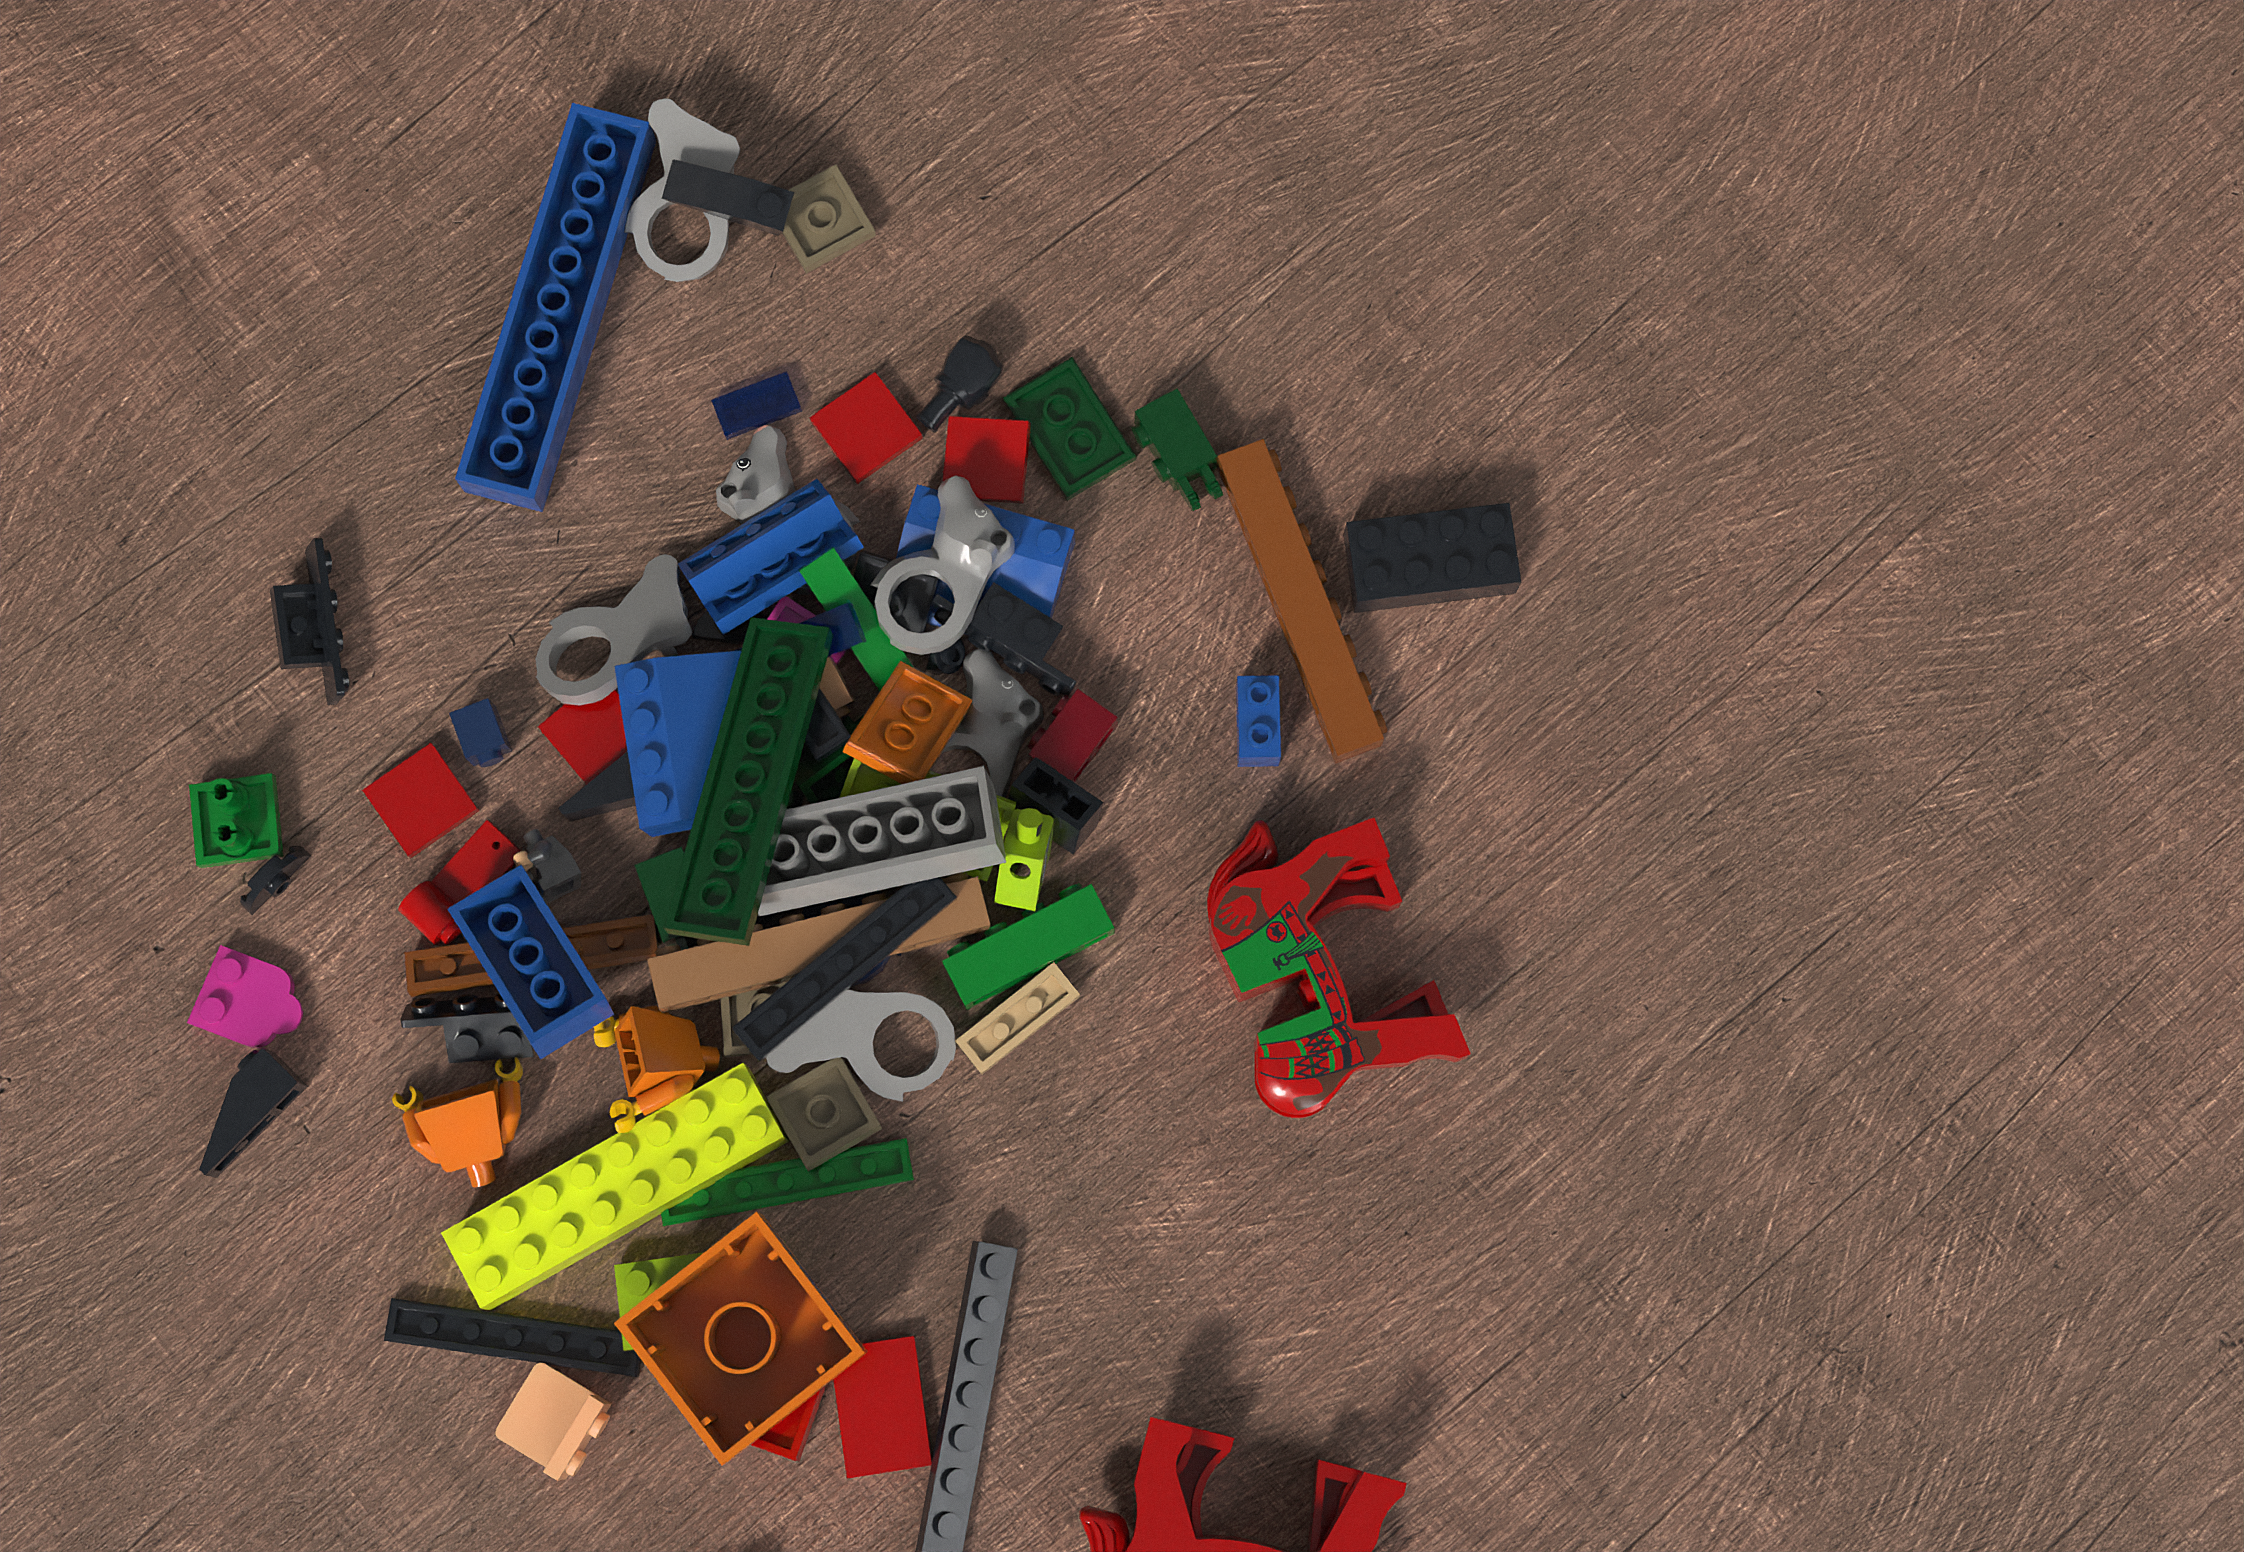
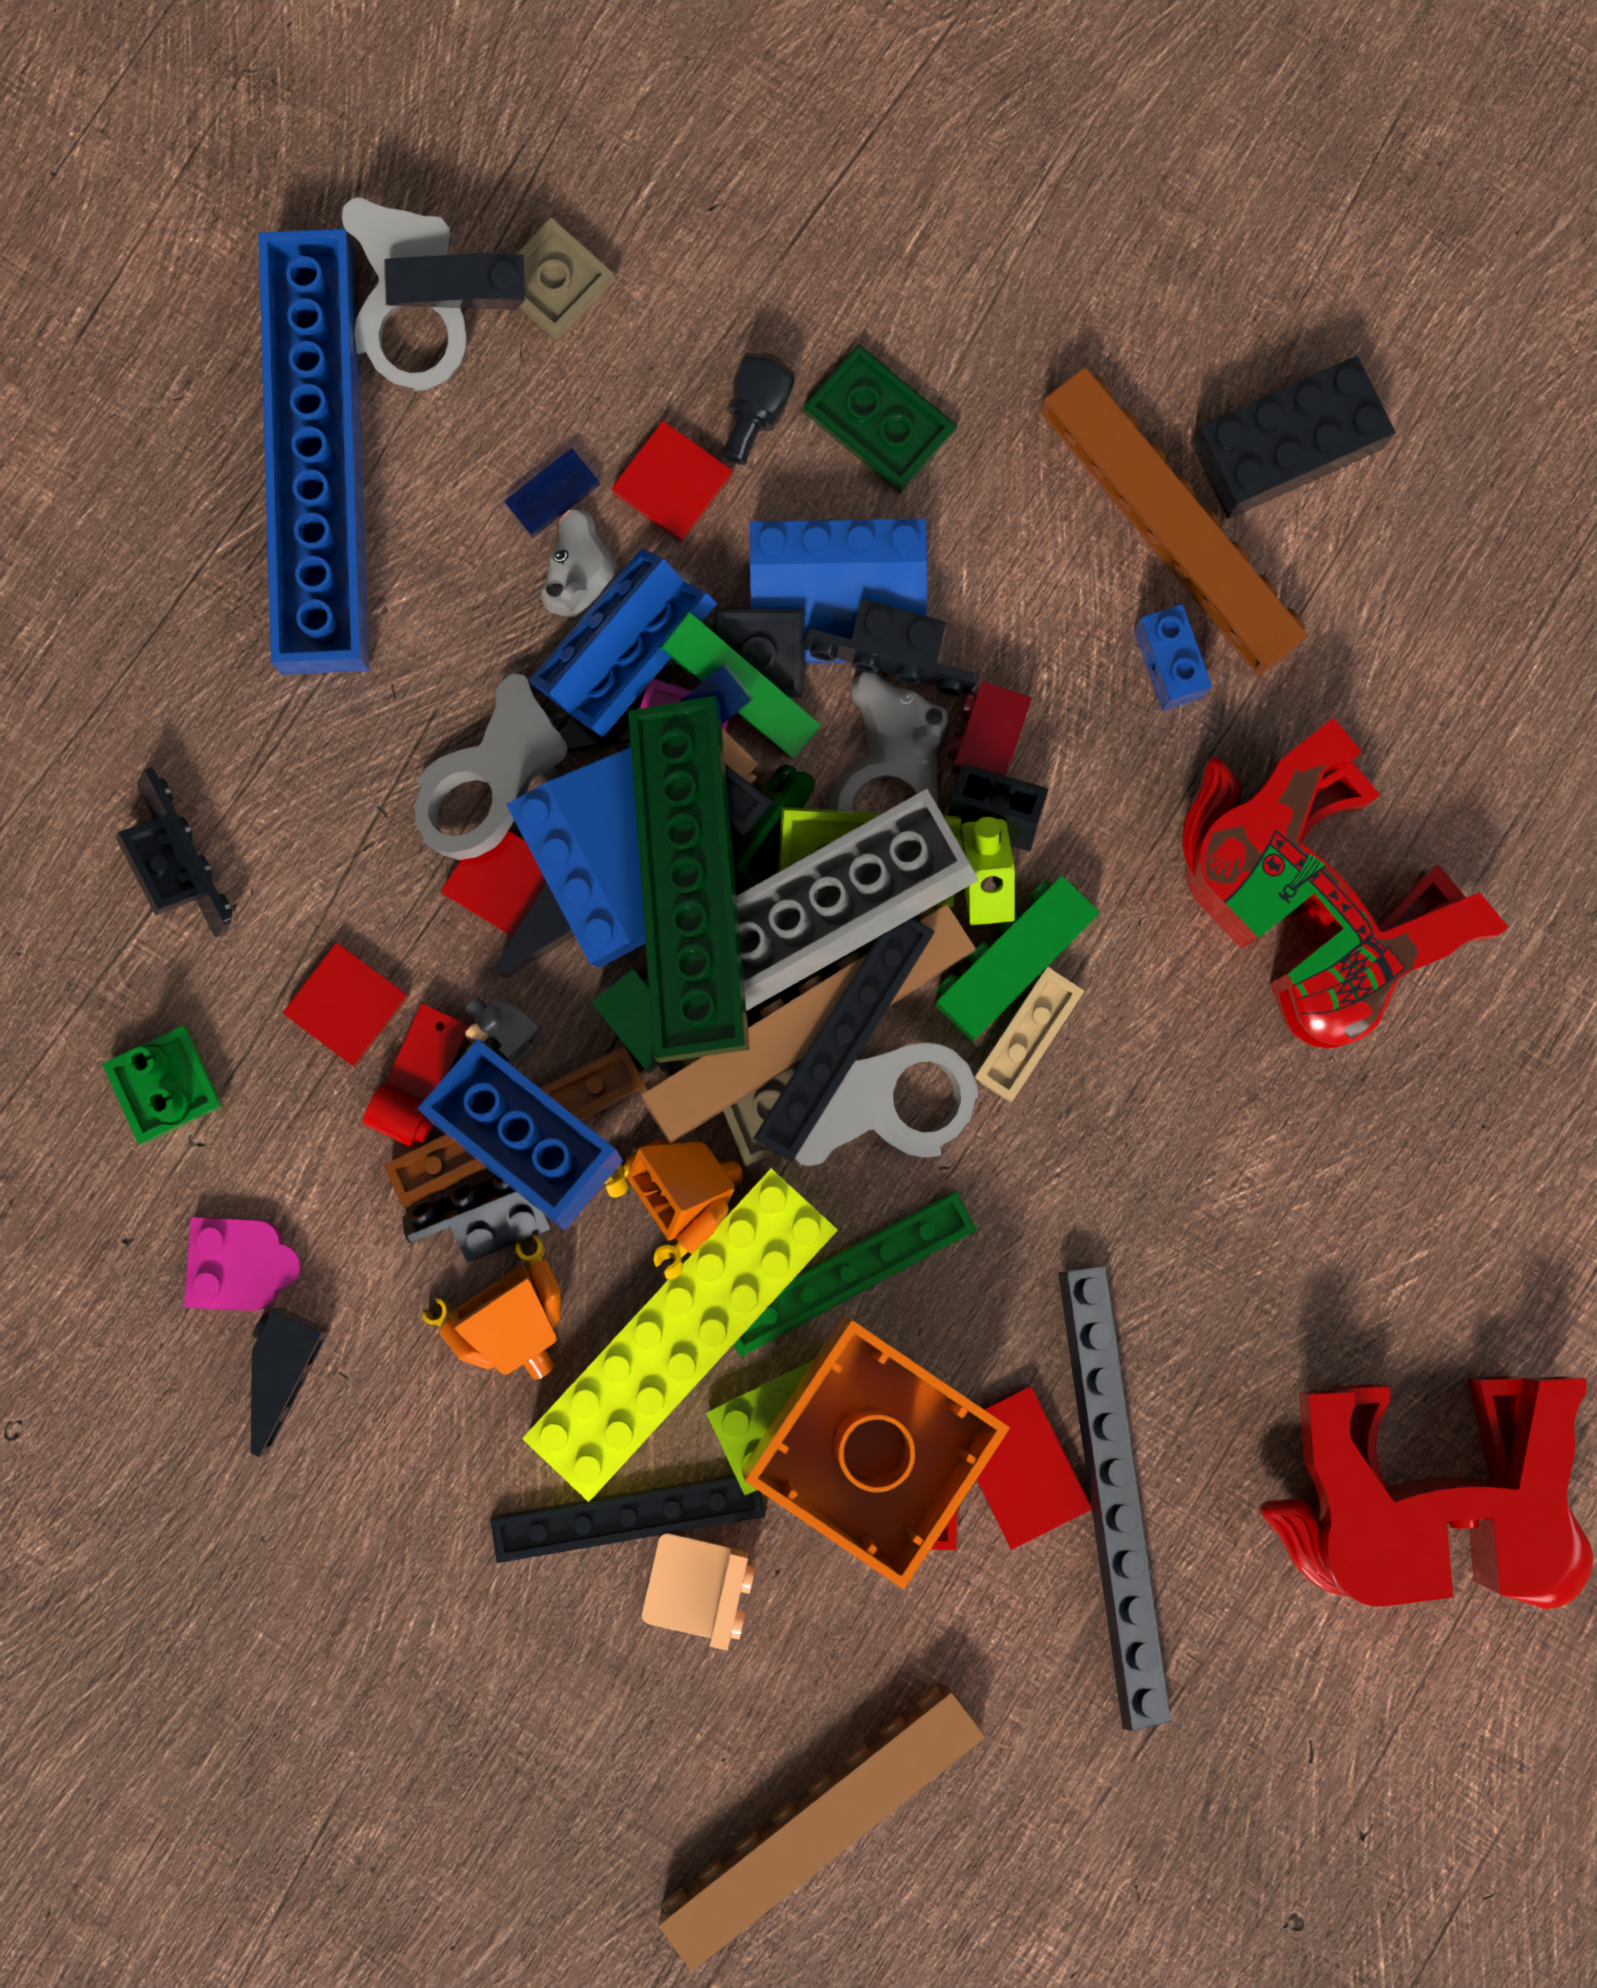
camera: 20 degrees left, 5 degrees up
(273, 878) = (221, 1132): black plate -> none
(481, 733) = (385, 917): dark blue brick -> none
(823, 1113) = (866, 1192): dark tan plate -> none
(907, 725) = (825, 772): orange tile -> none
(948, 660) = (831, 688): black plate -> none
(964, 555) = (823, 579): light grey animal -> none
(989, 456) = (807, 475): red tile -> none
(1178, 446) = (998, 403): dark green hinge -> none

